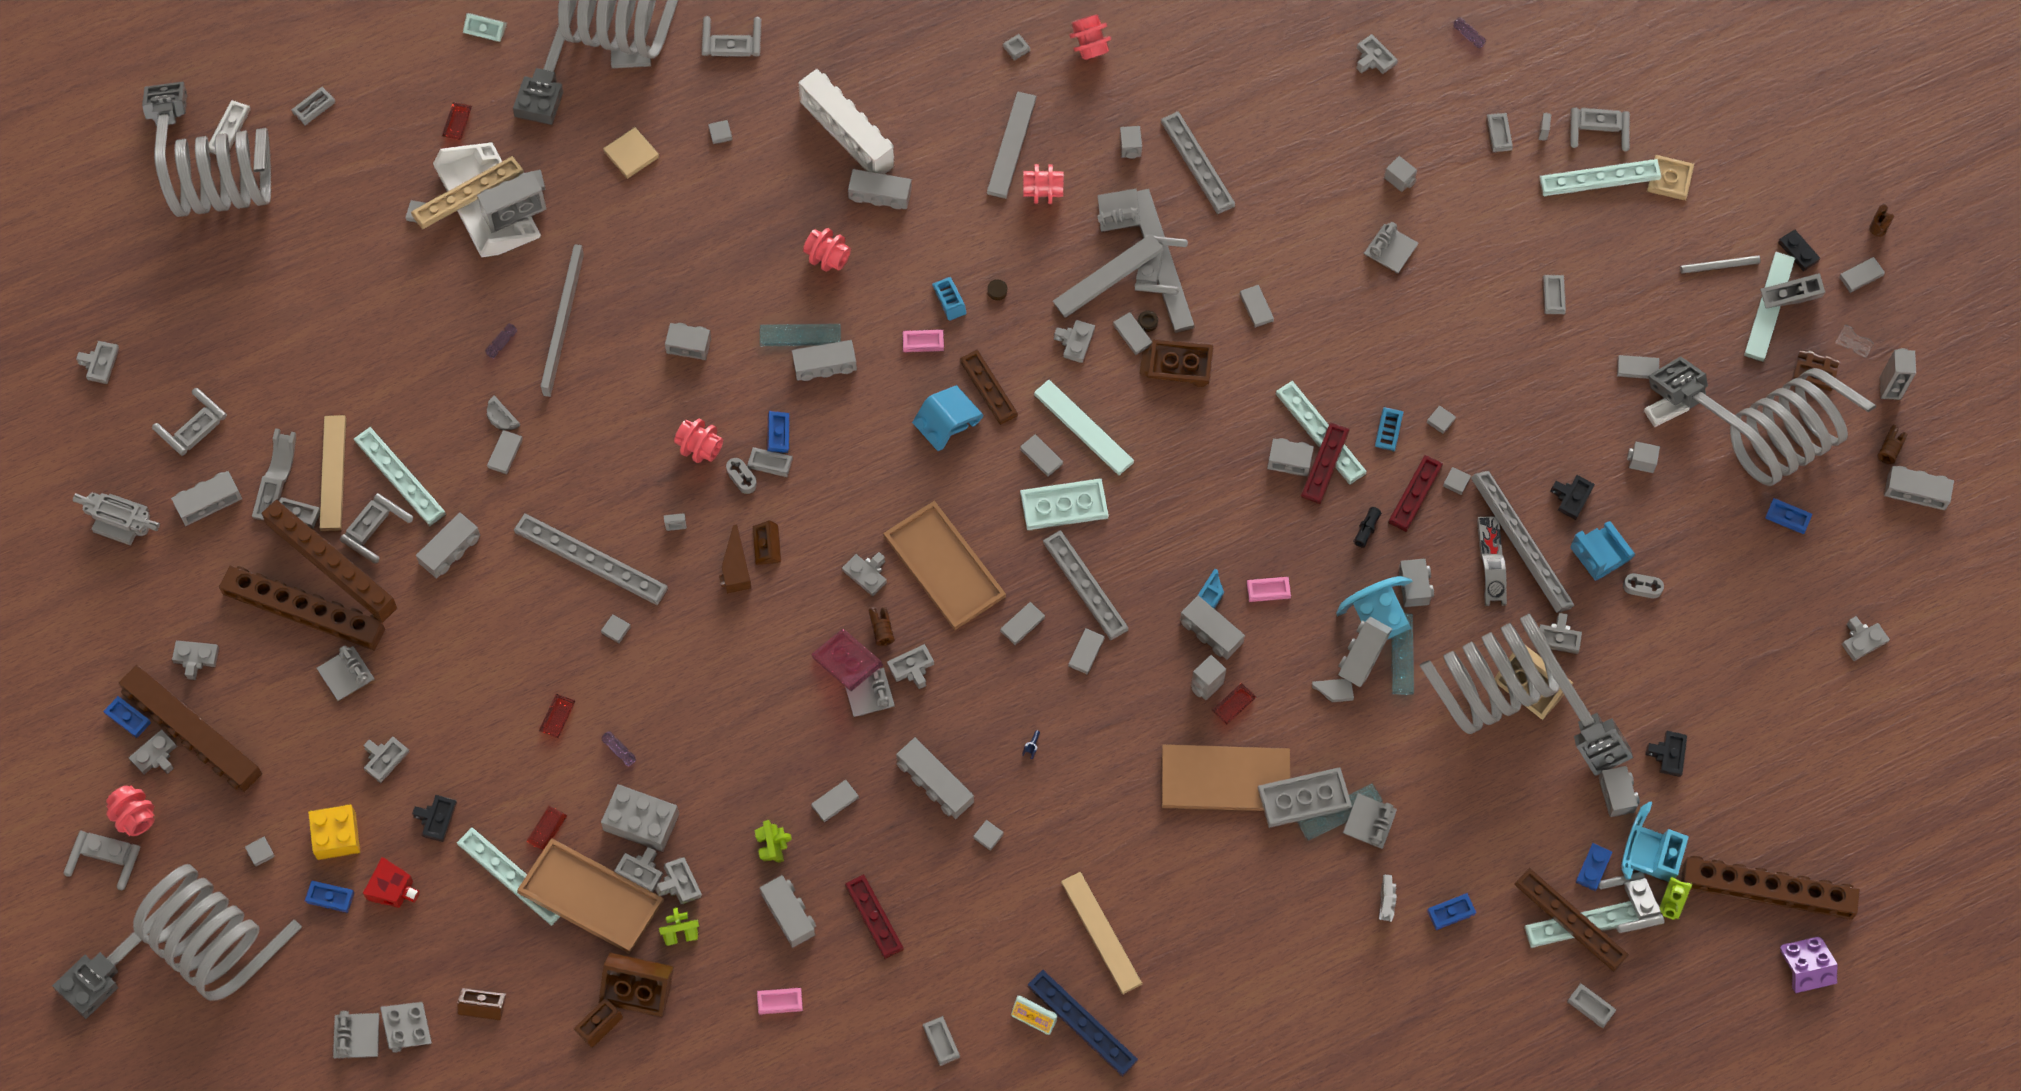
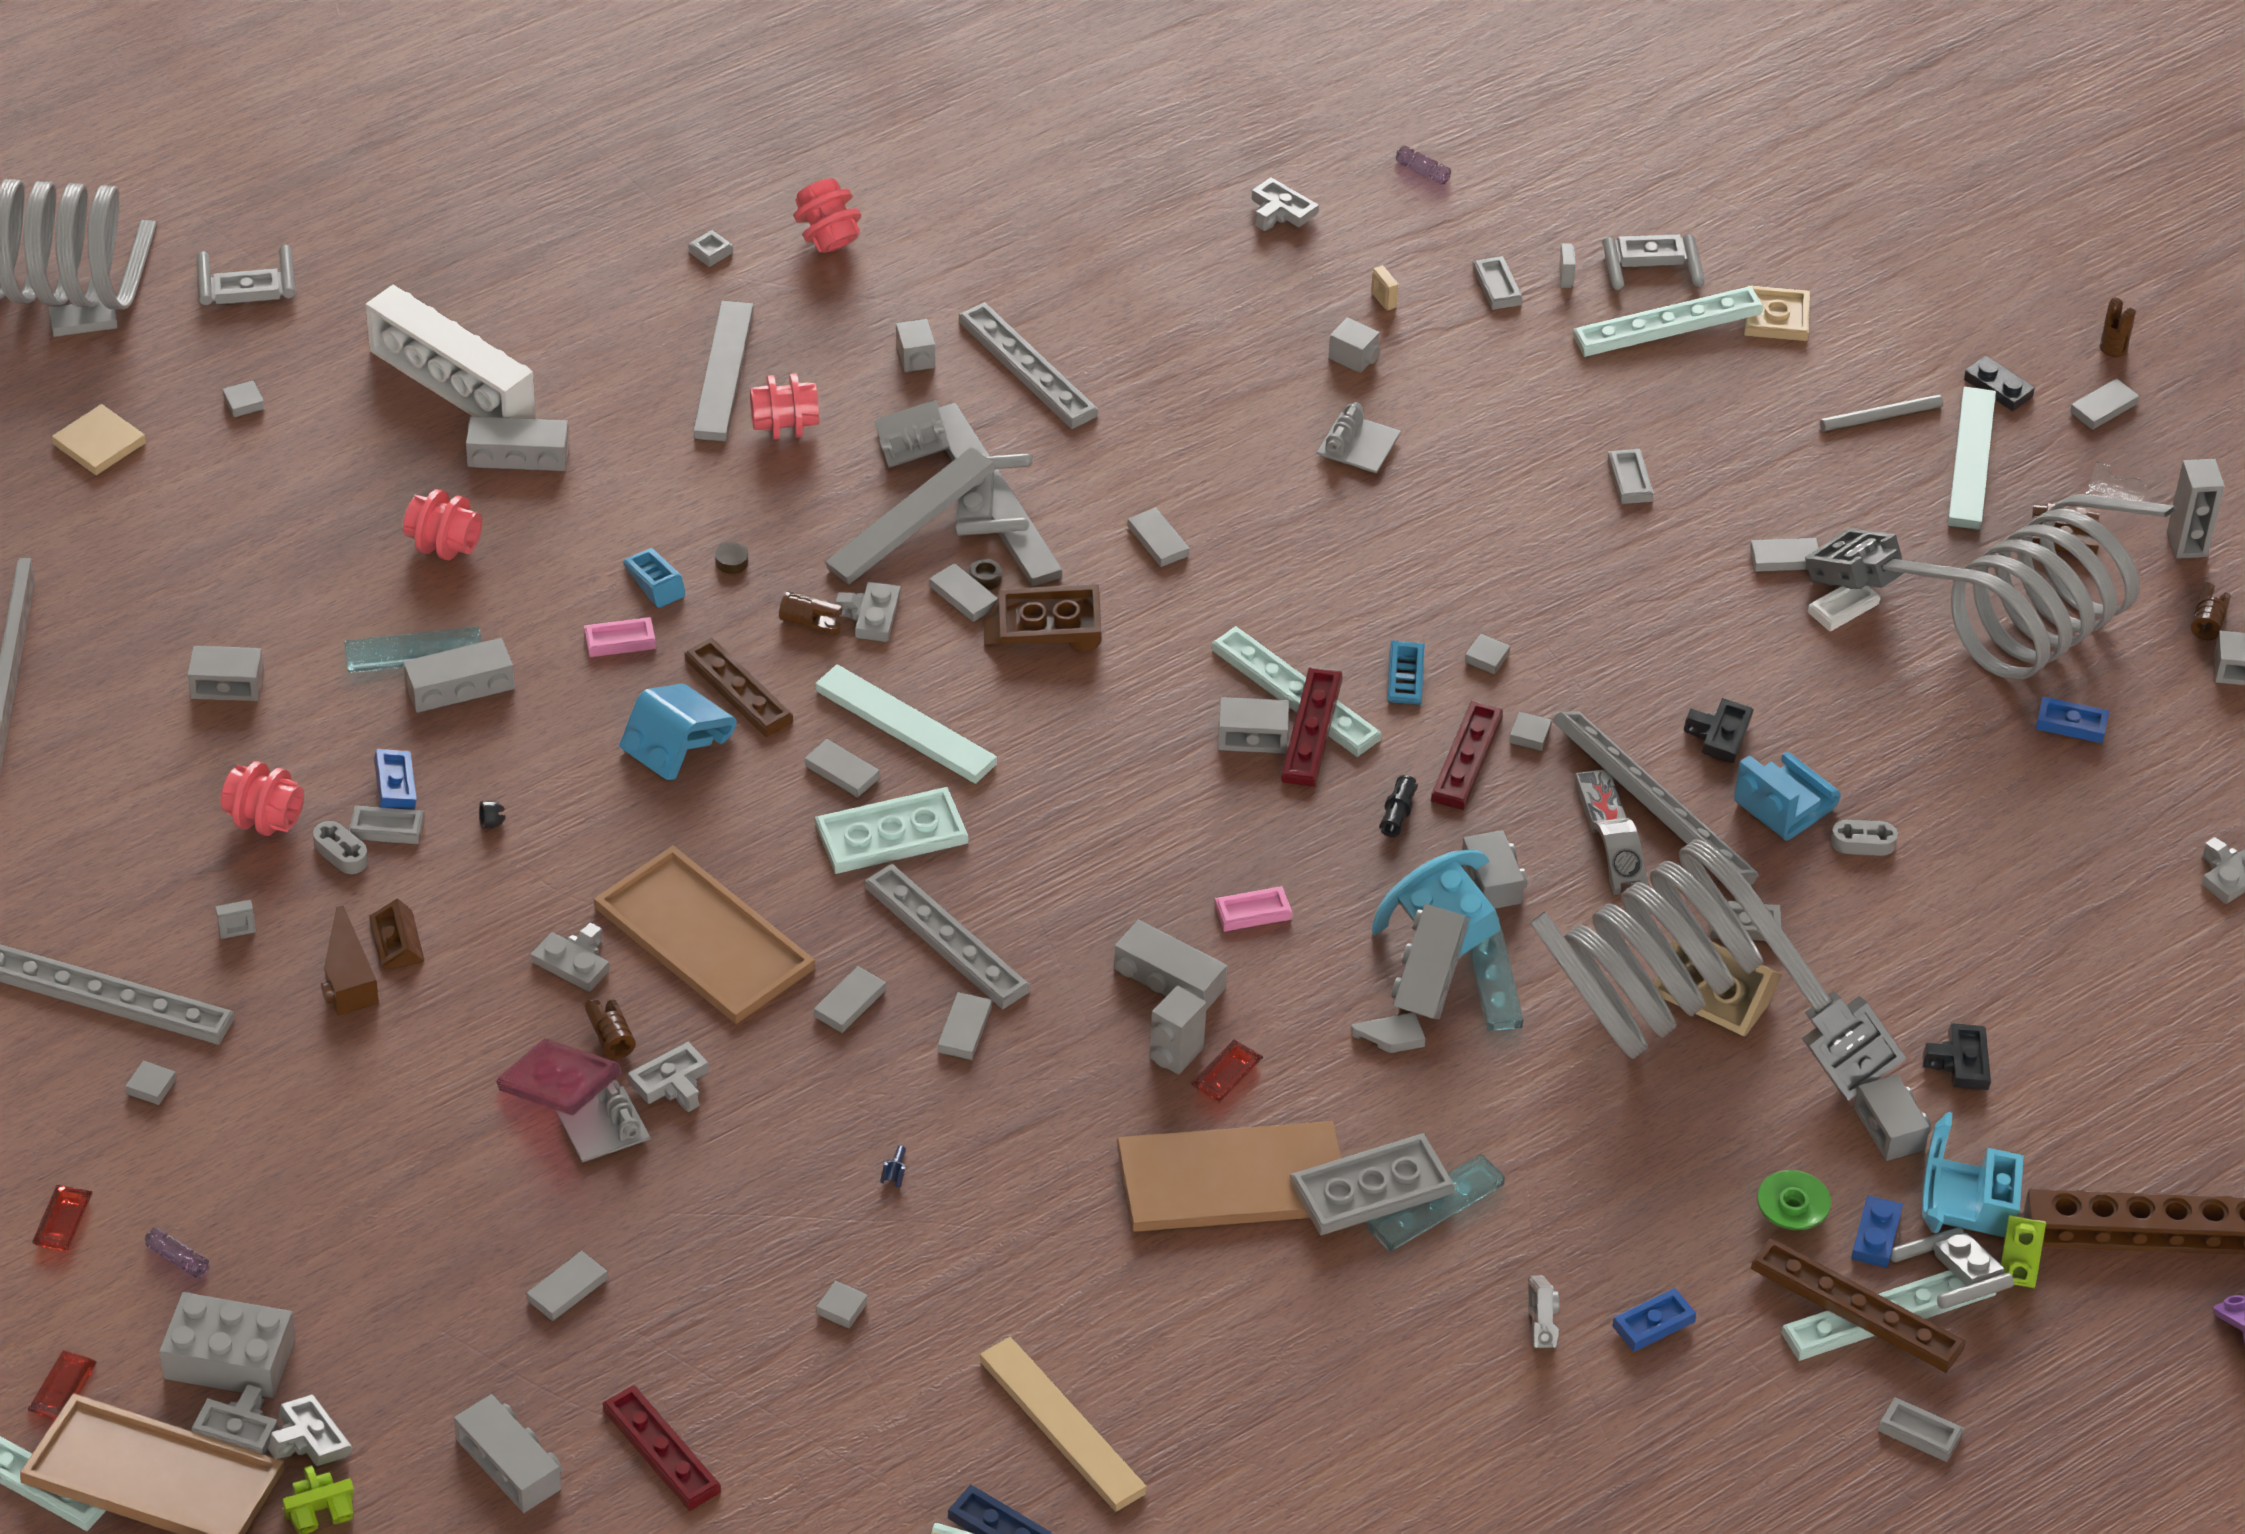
camera: 10 degrees left, 20 degrees down
(775, 839) = (470, 1349): lime hips -> none
(830, 463) = (489, 814): none -> black hinge
(934, 778) = (736, 1230): light grey brick -> none
(1038, 339) = (808, 612): none -> reddish brown hinge
(1212, 590) = (1161, 915): dark azure tile -> none
(1370, 820) = (1490, 1204): light grey hinge -> none
(1427, 131) = (1384, 288): none -> tan tile
(1550, 832) = (1794, 1200): none -> bright green dish
(1643, 457) = (1822, 666): light grey brick -> none
(1793, 291) = (2007, 428): light grey slope -> none

